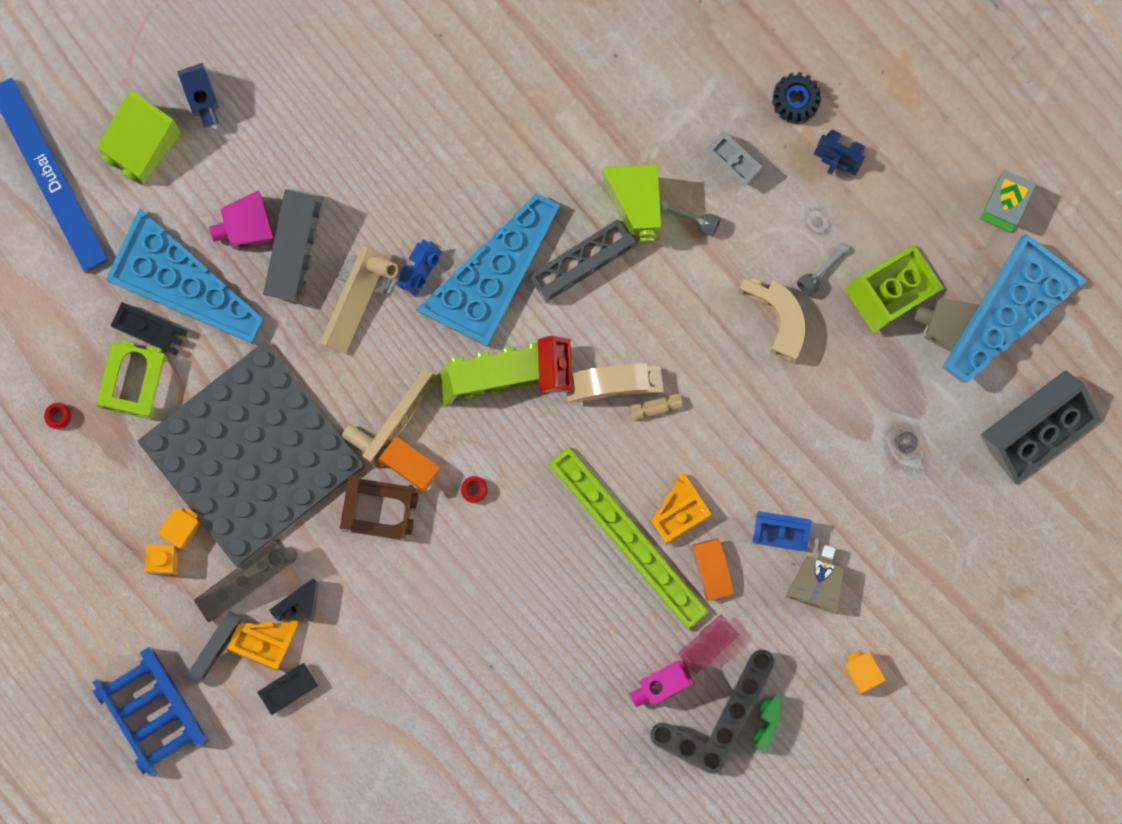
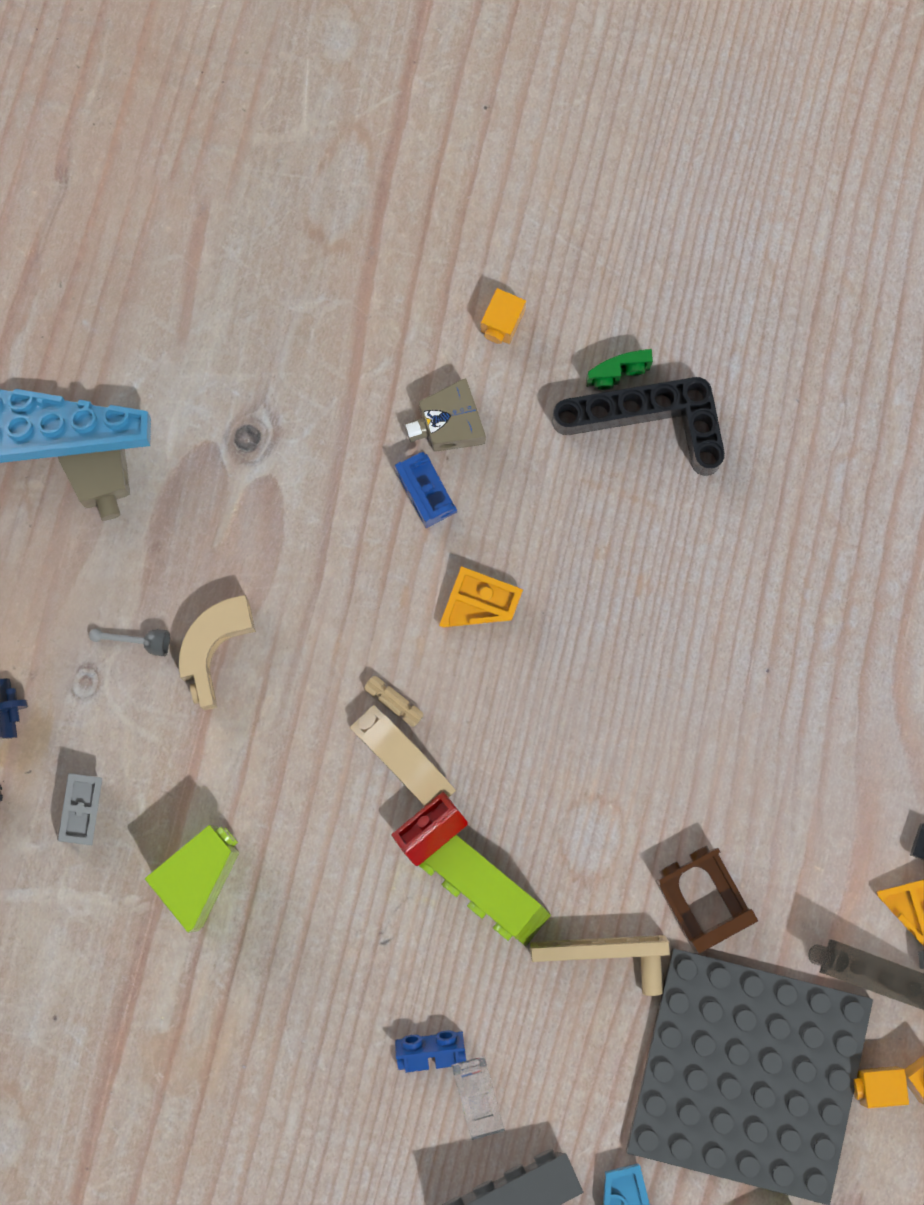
camera: 130 degrees left, 0 degrees up
(304, 597) = (851, 904): black slope -> none
(355, 297) = (511, 1092): tan piece -> none
(409, 464) = (640, 900): orange hinge -> none
(470, 481) = (623, 818): red plate -> none
(486, 283) = (394, 967): dark azure wing -> none
(588, 265) = (303, 875): dark grey fence -> none
(628, 538) = (543, 633): lime tile -> none
(673, 680) = (649, 487): dark pink torso -> none
(708, 223) = (167, 789): hinge -> none
(708, 644) = (588, 477): clear pink slope -> none
(713, 569) = (512, 527): orange slope -> none
(893, 288) = (102, 555): lime slope -> none
(1041, 426) = (138, 321): dark grey slope -> none

